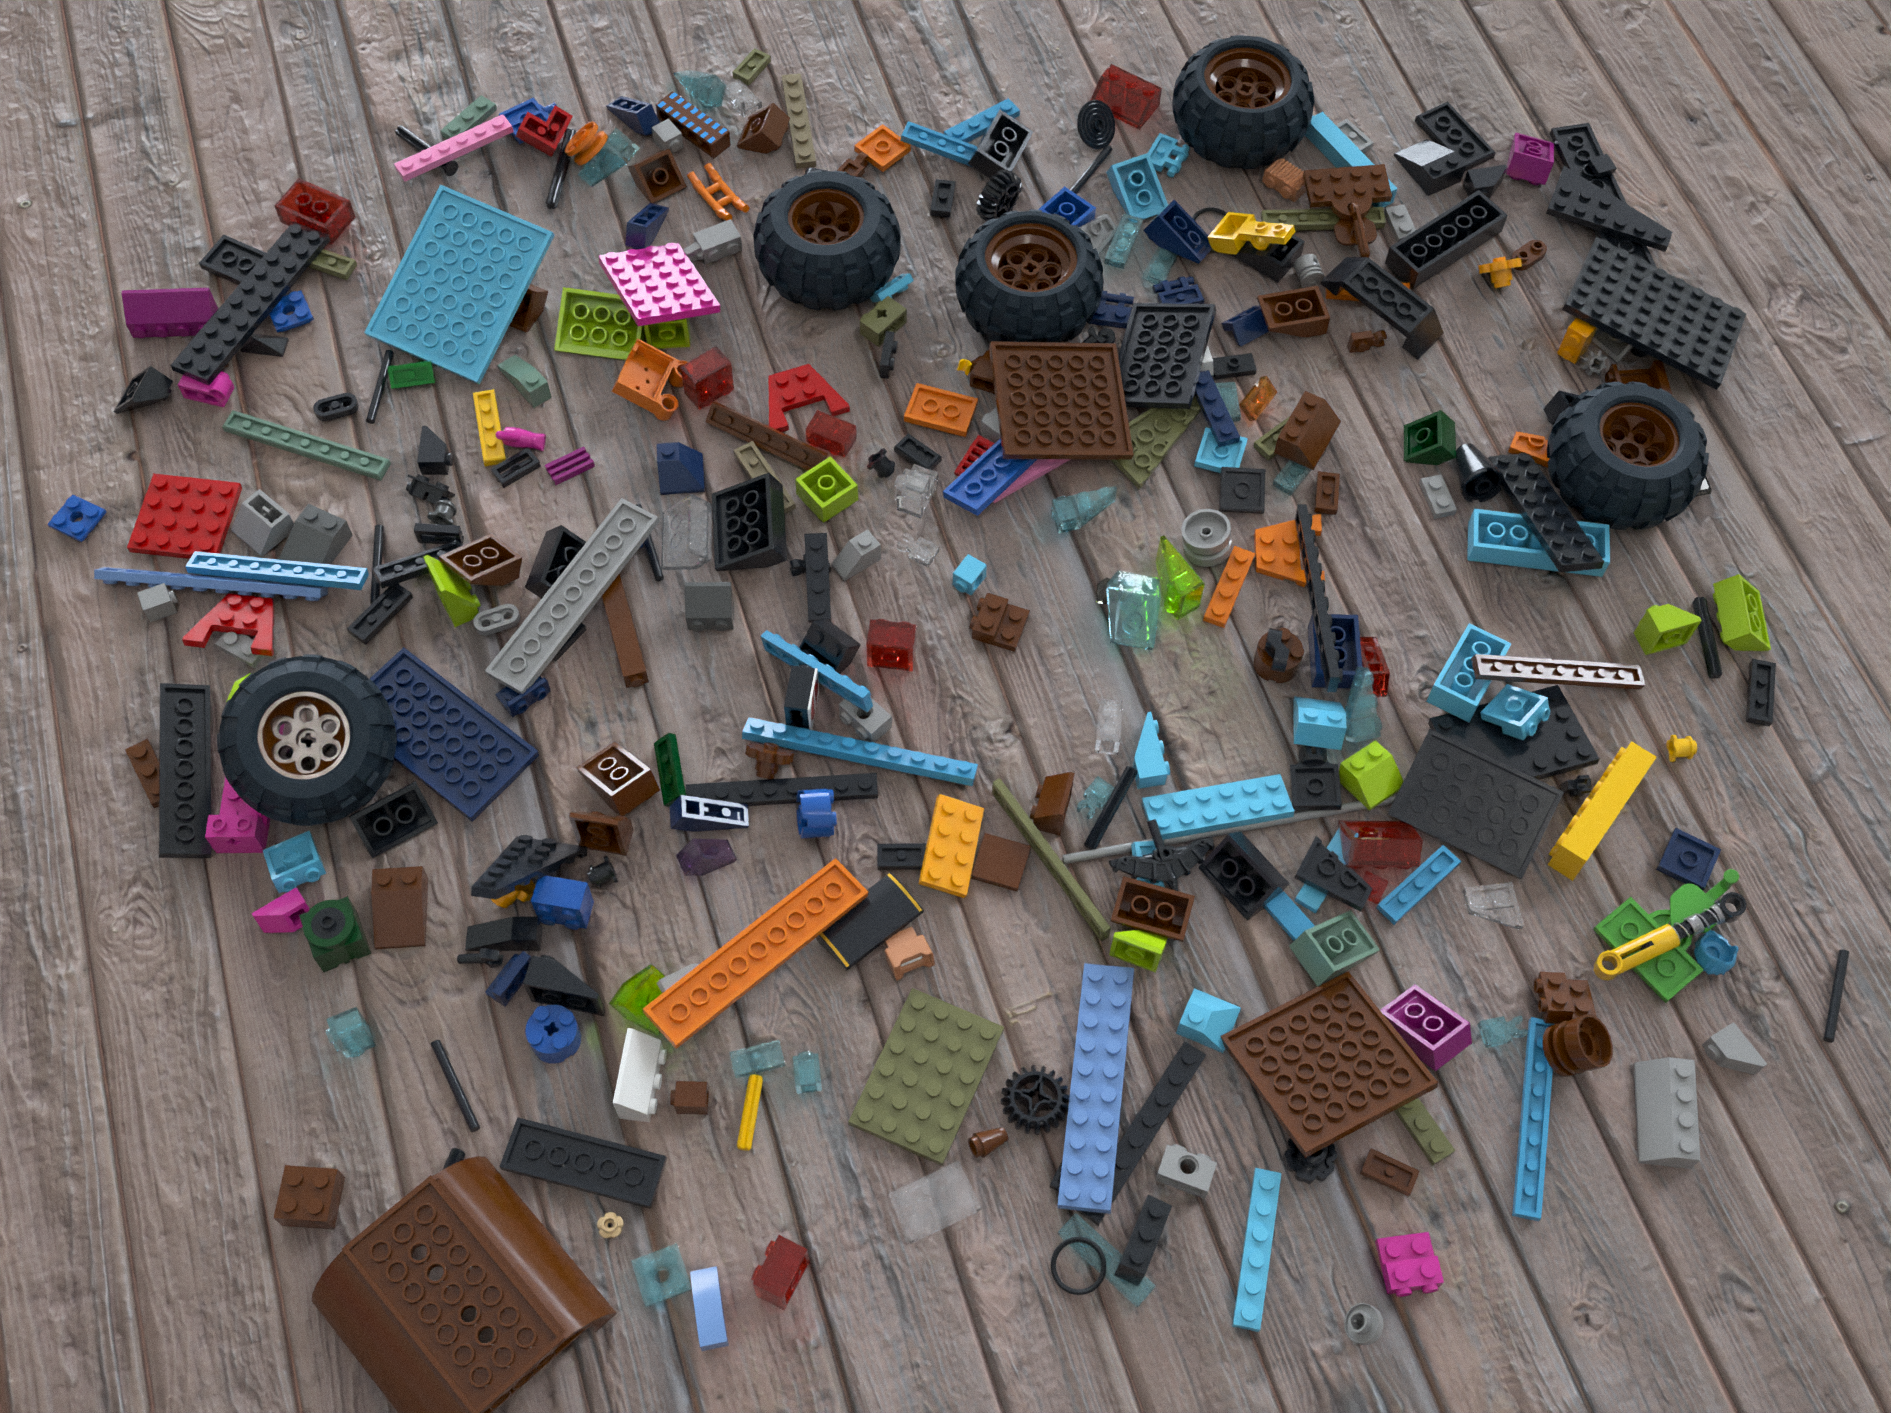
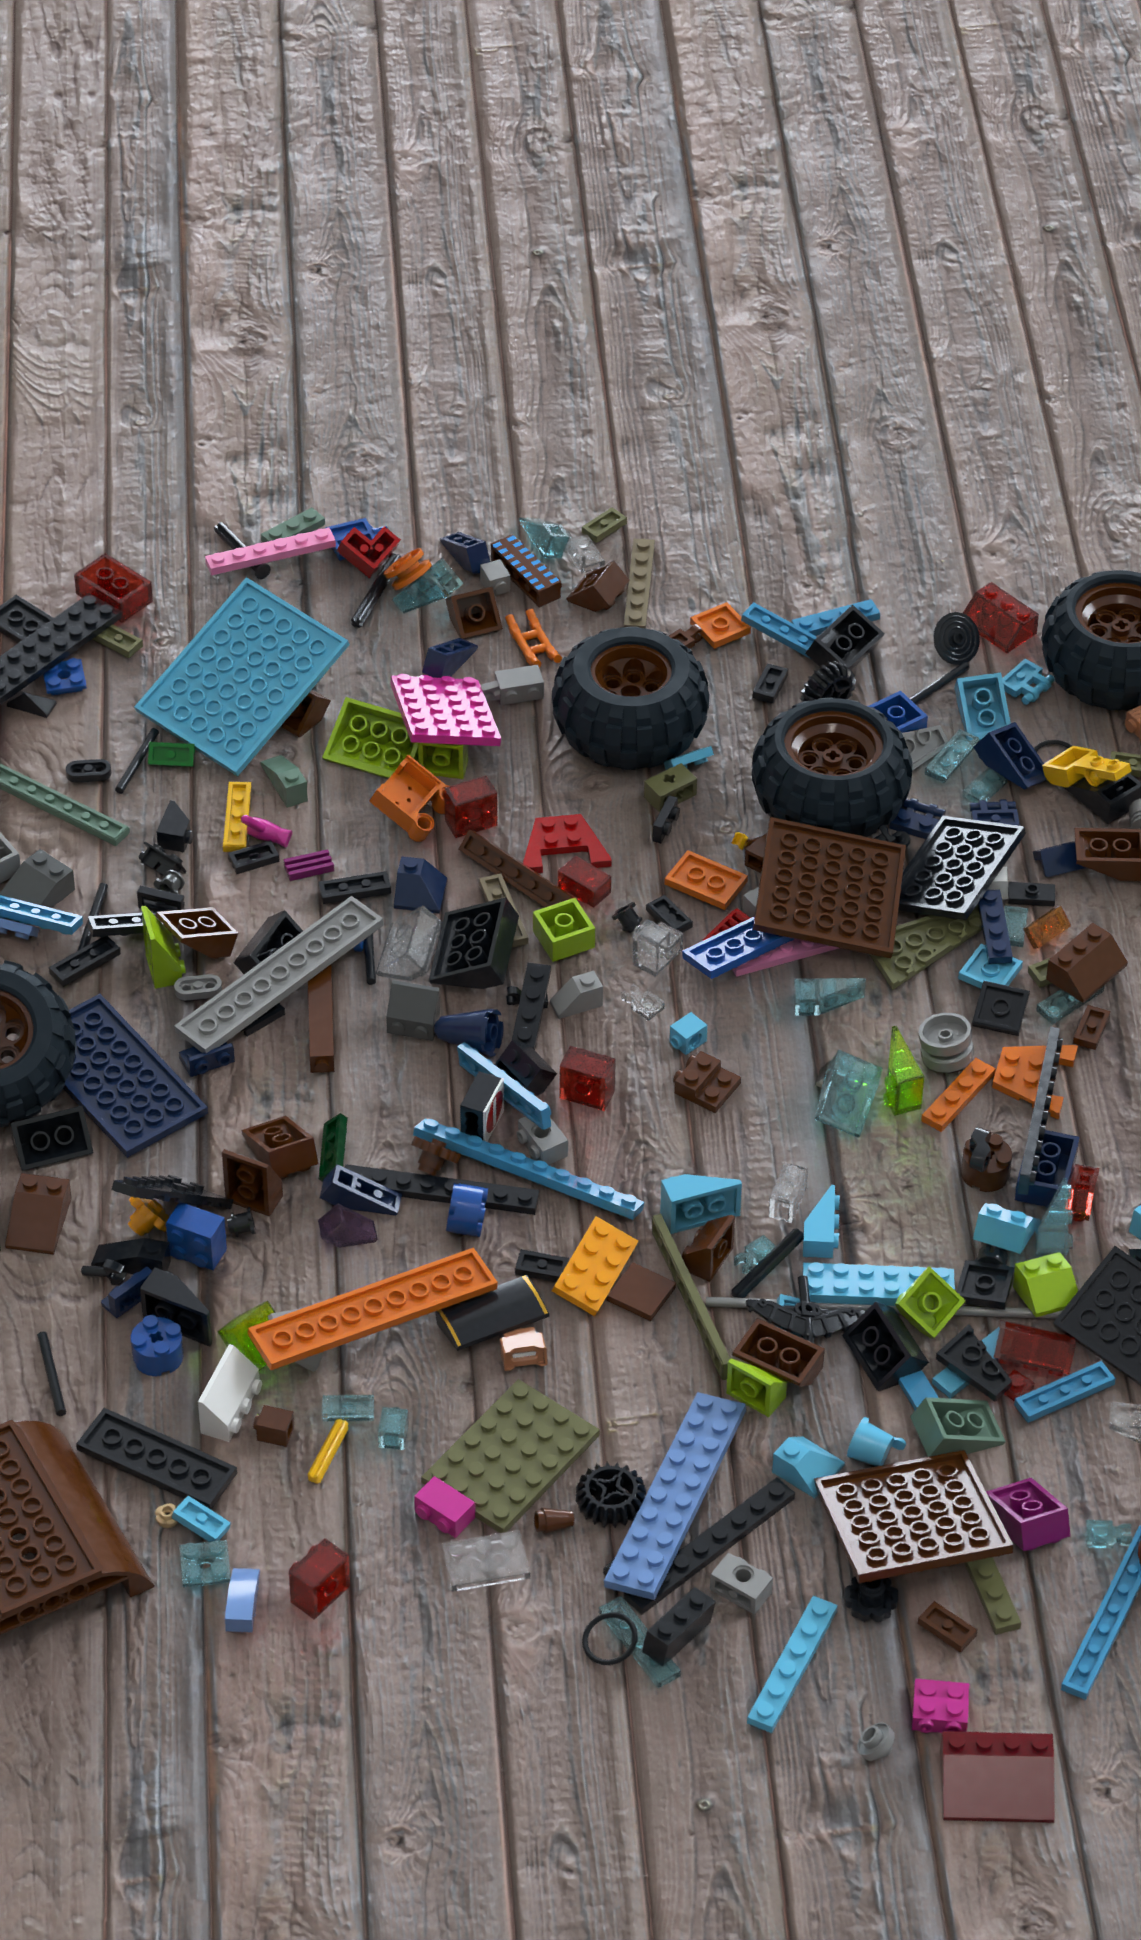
camera: 15 degrees right, 15 degrees down
(619, 482) = (356, 886): none -> black plate
(645, 1226) = (201, 1519): none -> medium azure plate
(772, 613) = (476, 1028): none -> dark blue cone
(879, 1152) = (444, 1507): none -> dark pink brick
(1029, 756) = (695, 1199): none -> medium azure slope
(1263, 986) = (872, 1444): none -> medium azure hat
(1274, 822) = (929, 1303): none -> lime slope
(1487, 1335) = (997, 1776): none -> slope

